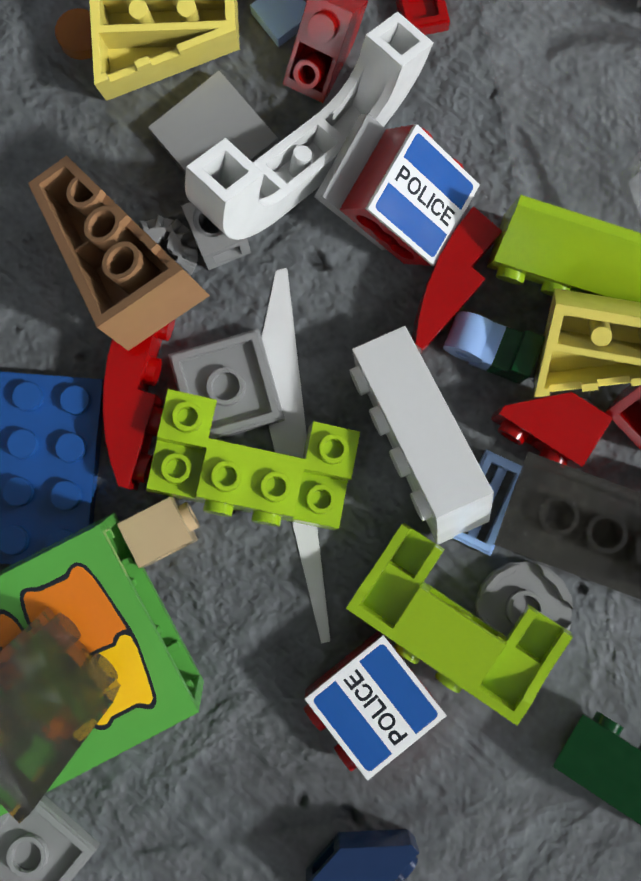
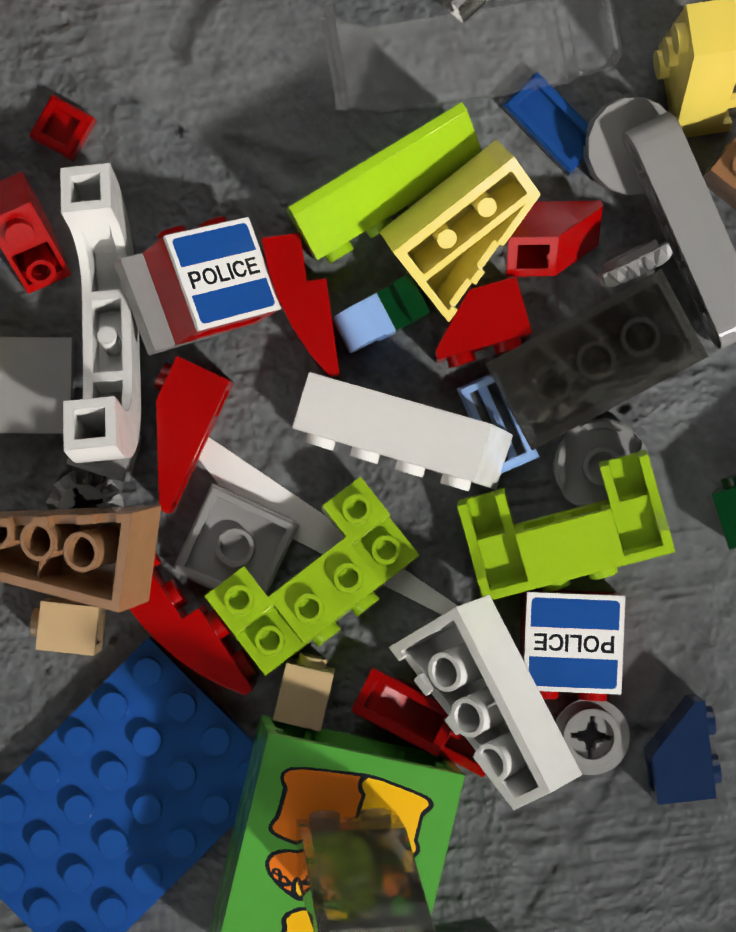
camera: 45 degrees left, 5 degrees up
(60, 313) = (68, 626): none -> tan brick
(217, 647) = (414, 717): none -> red slope
(275, 683) = (491, 700): none -> white wedge
(291, 267) = (185, 417): none -> red slope
(309, 805) = (606, 751): none -> light grey gear

